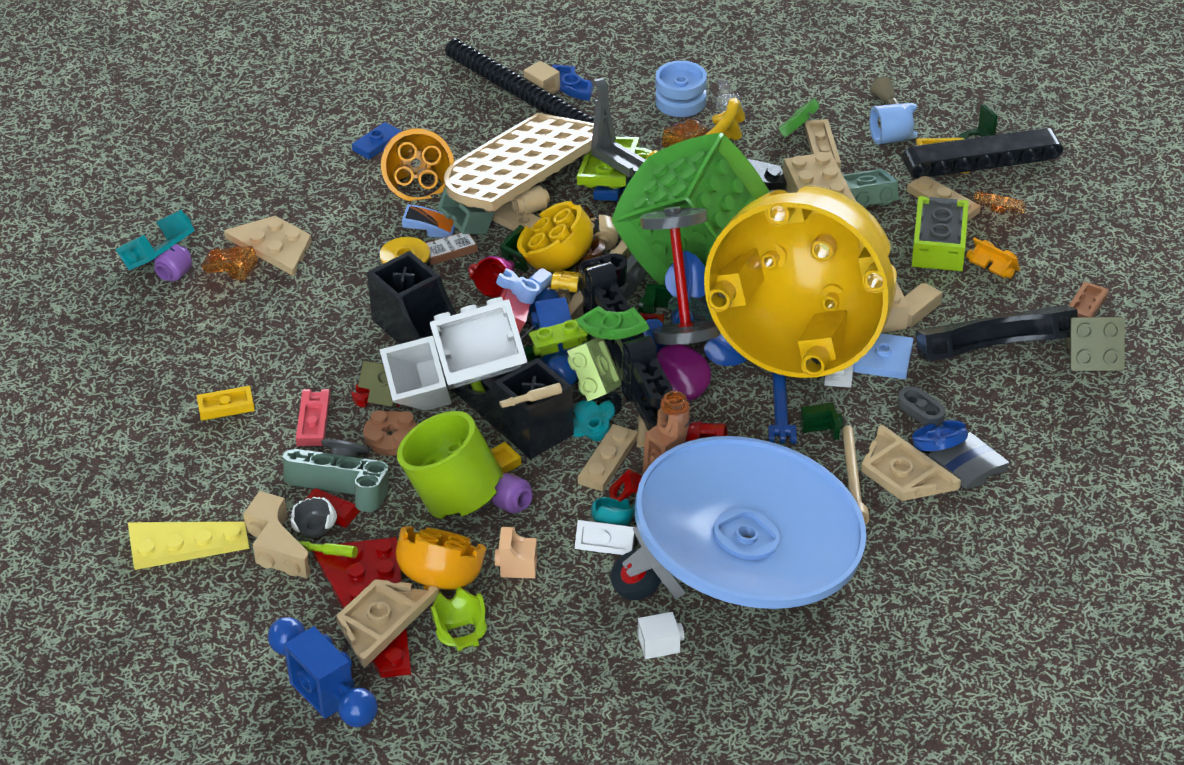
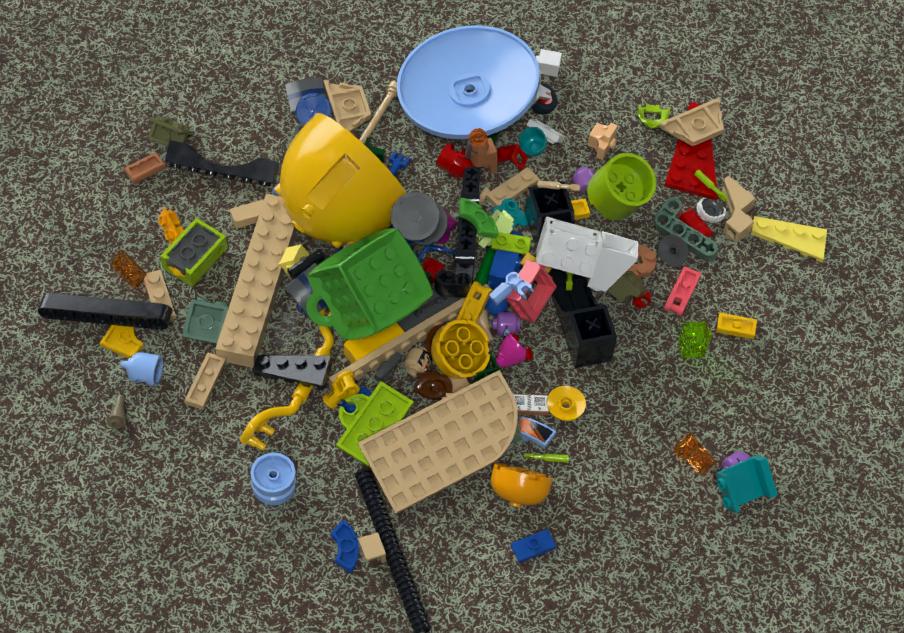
camera: 160 degrees left, 15 degrees up
(273, 241) = (653, 467): tan wing -> none
(273, 350) = (694, 339): none -> clear neon green brick
(321, 672) = (743, 104): blue brick -> none
(395, 213) = (549, 457): none -> lime piece
(438, 558) = (644, 131): light orange cylinder -> none
(604, 137) = (372, 405): dark grey hinge -> none
(682, 131) = (301, 434): clear orange plate -> none
(724, 96) = (240, 461): clear plate -> none
(799, 117) = (203, 410): bright green tile -> none
(986, 125) = (77, 344): dark green bracket -> none

